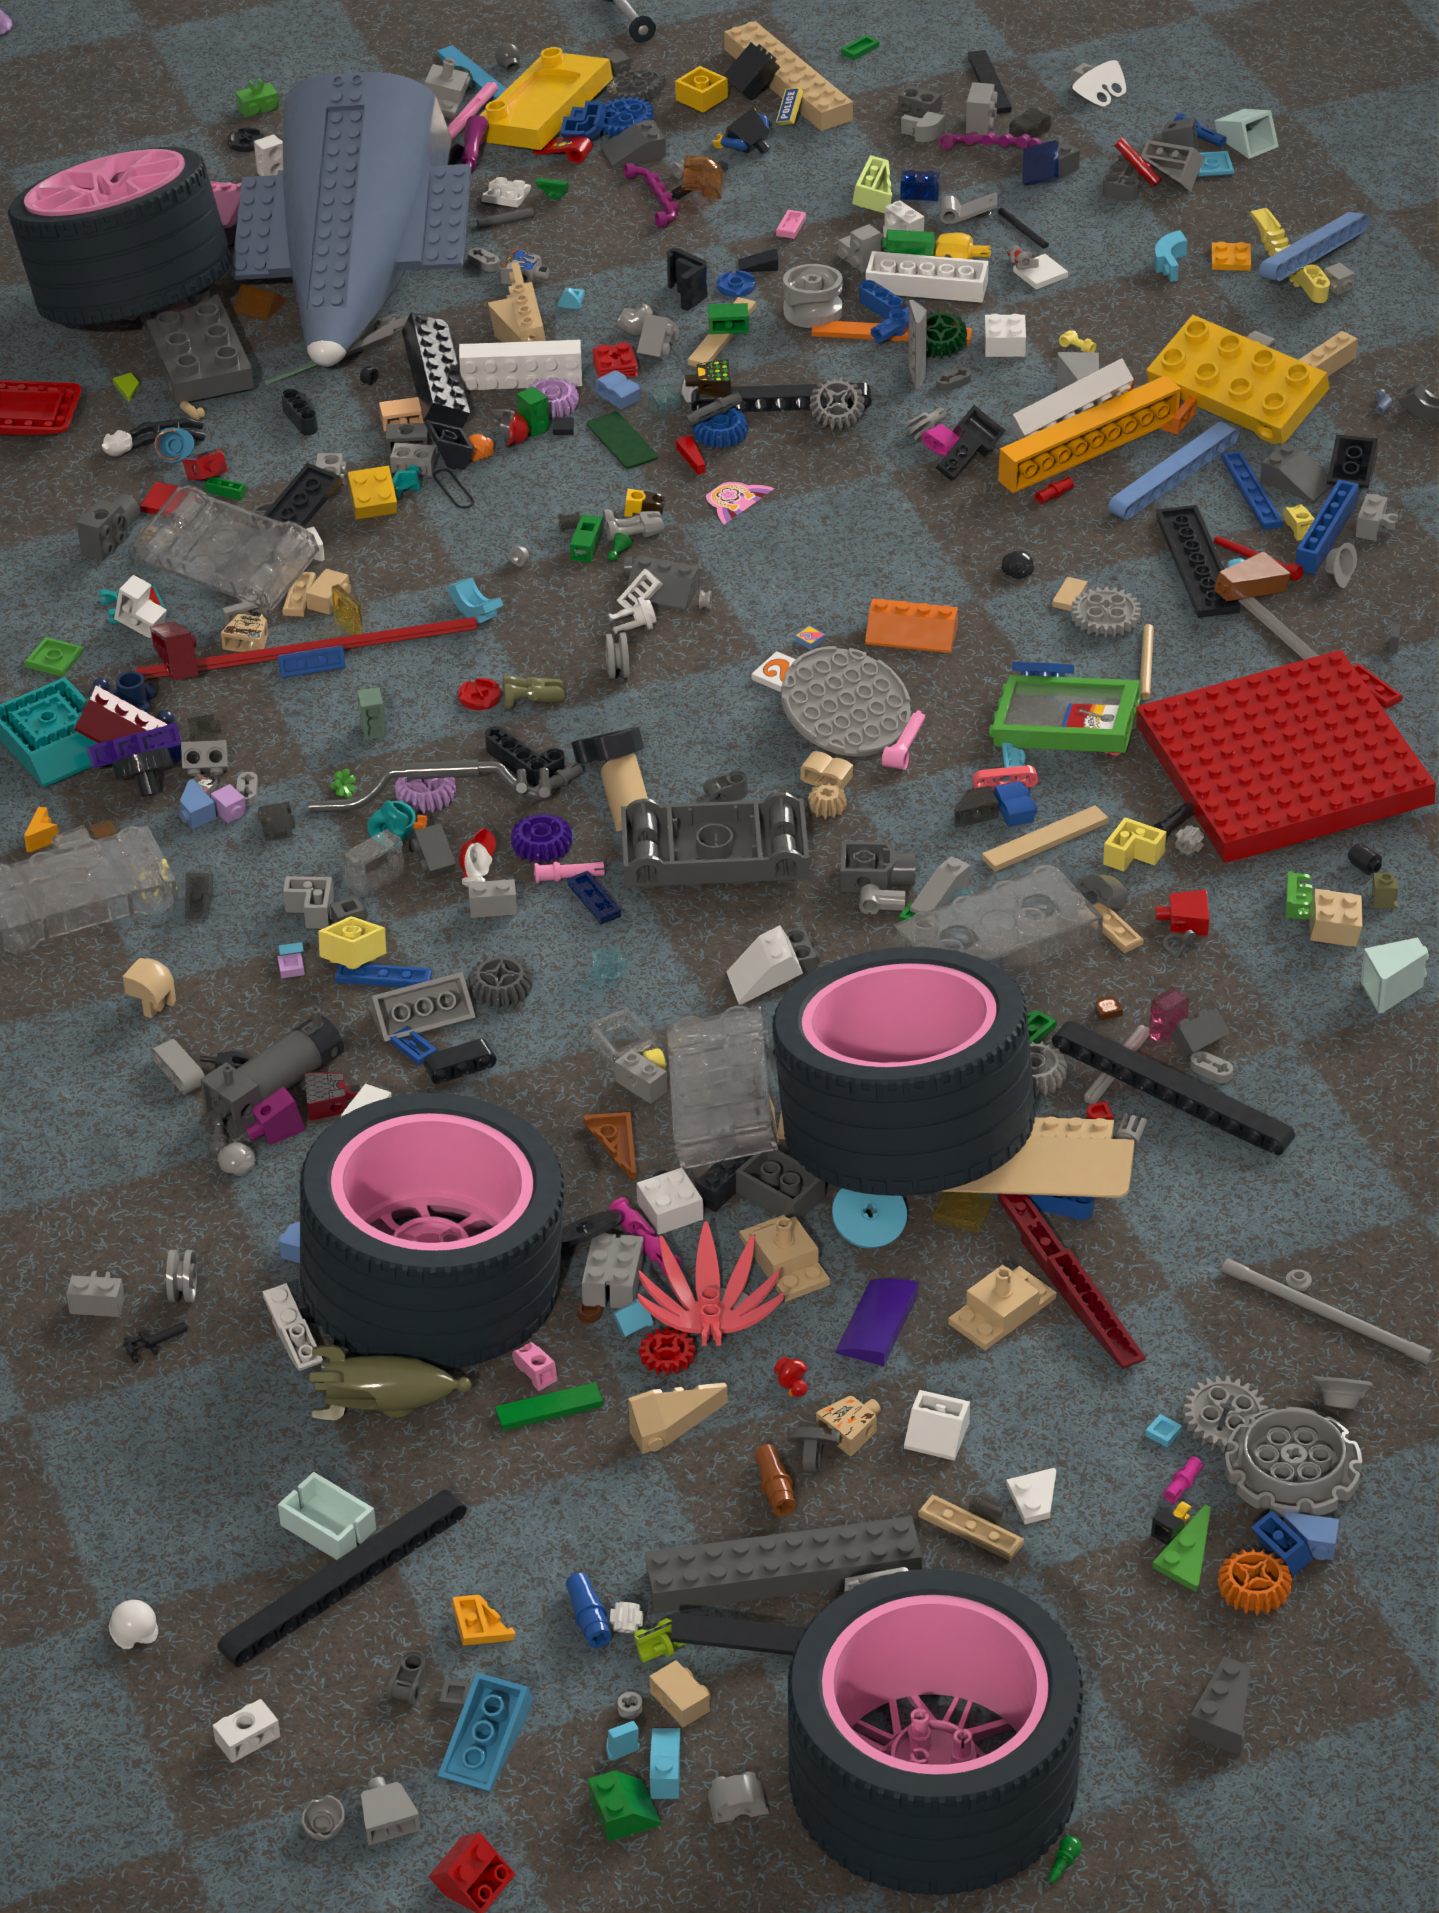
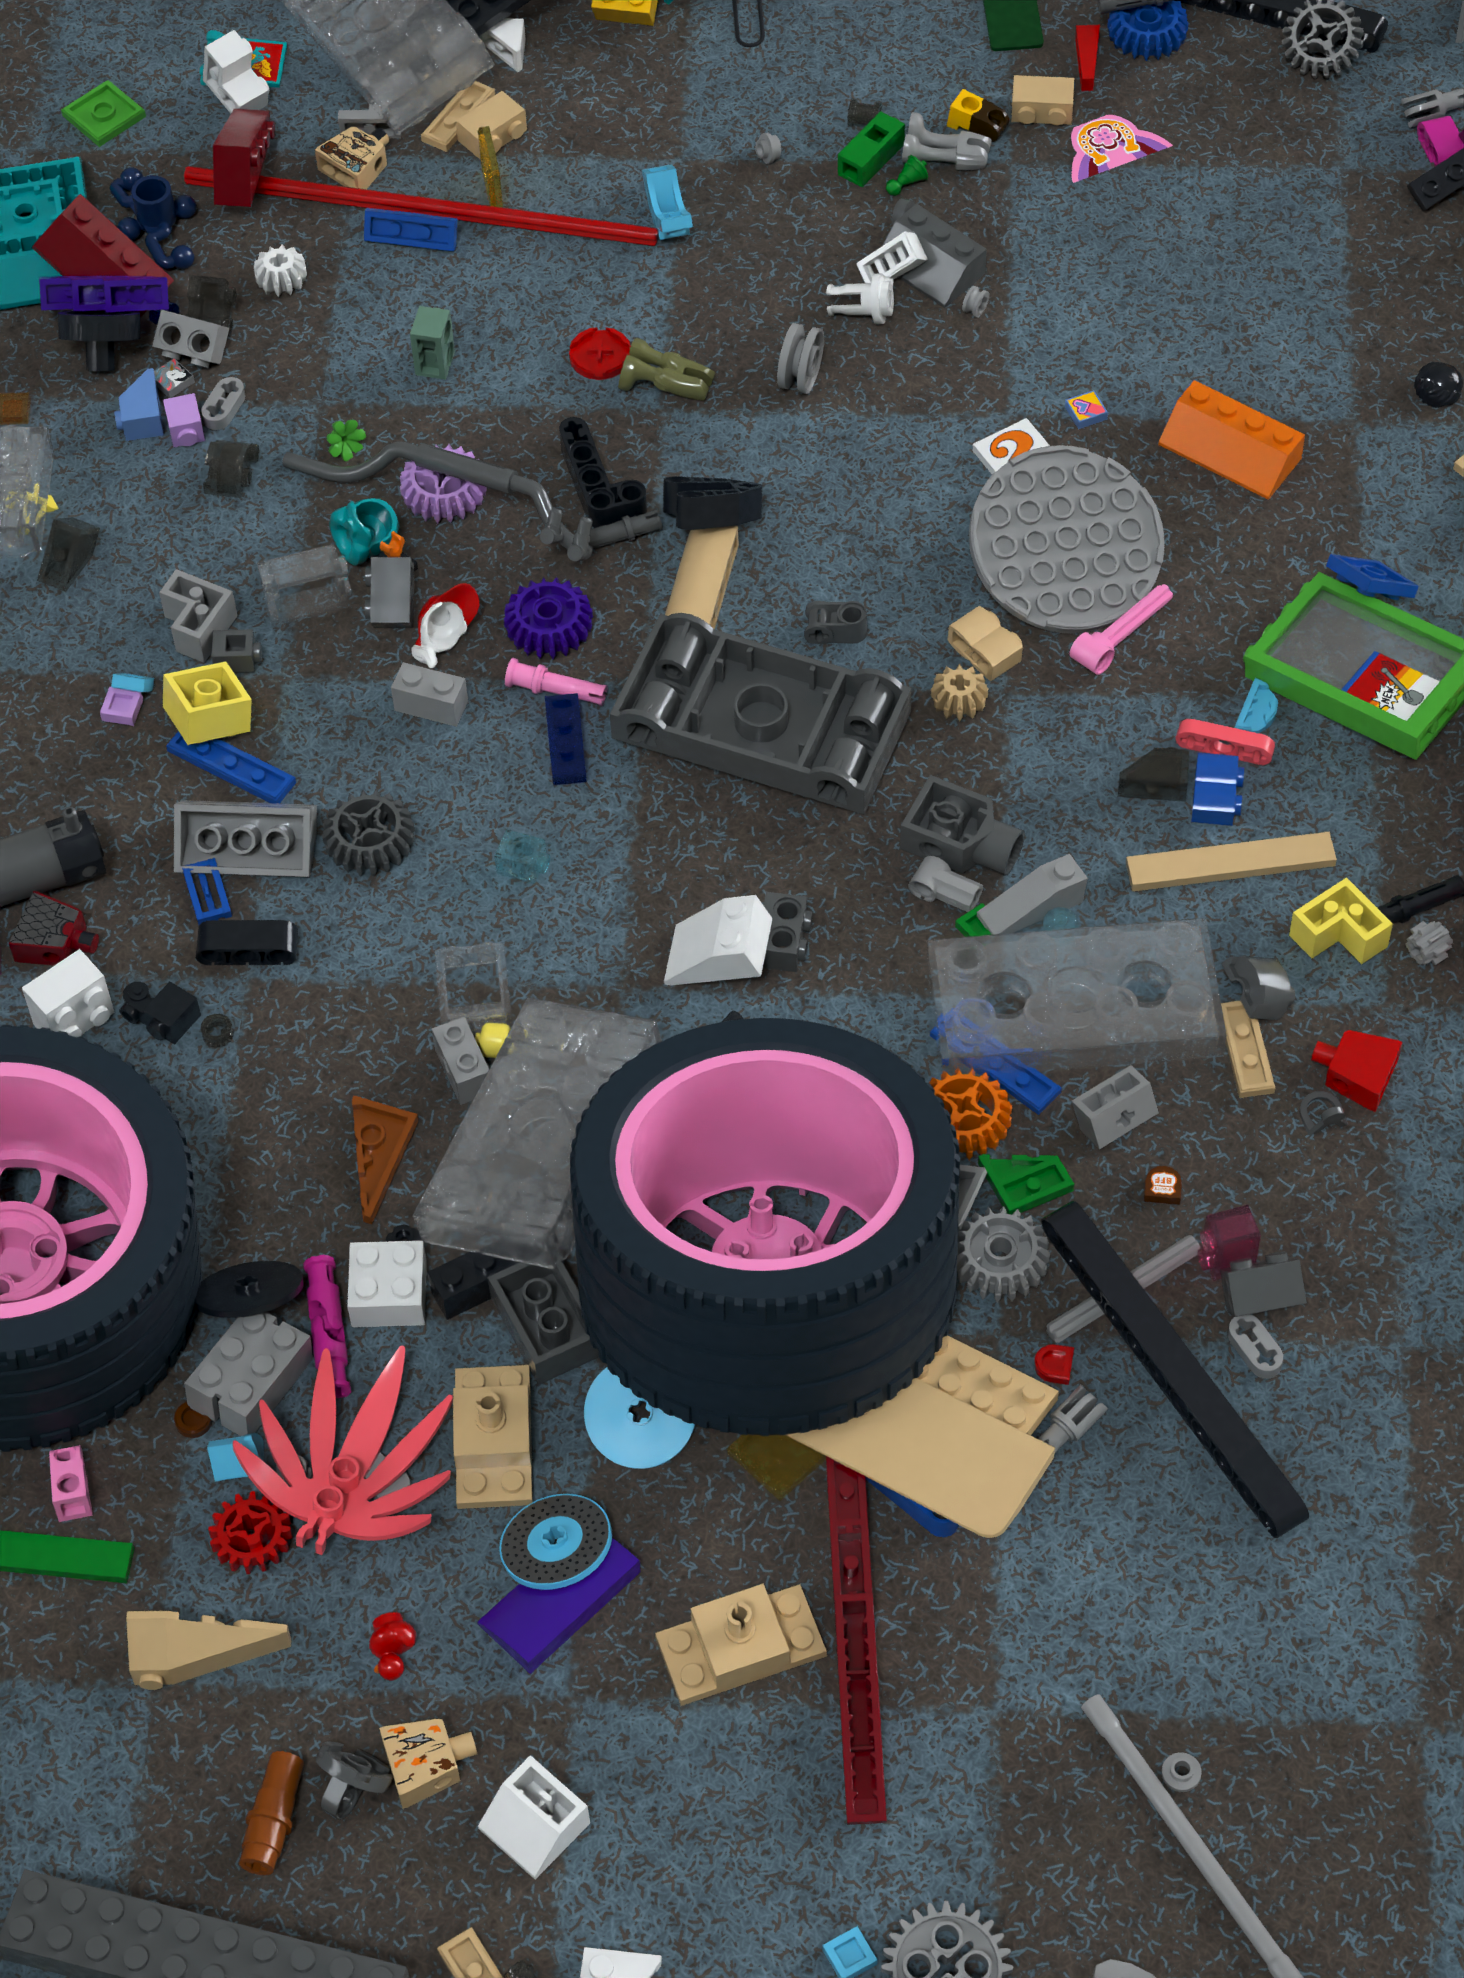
camera: 25 degrees right, 15 degrees up
(238, 706) = (280, 270): none -> white gear
(679, 483) = (1042, 100): none -> tan brick
(859, 1292) = (581, 1545): none -> piece
(1057, 974) = (1115, 1106): none -> light grey brick

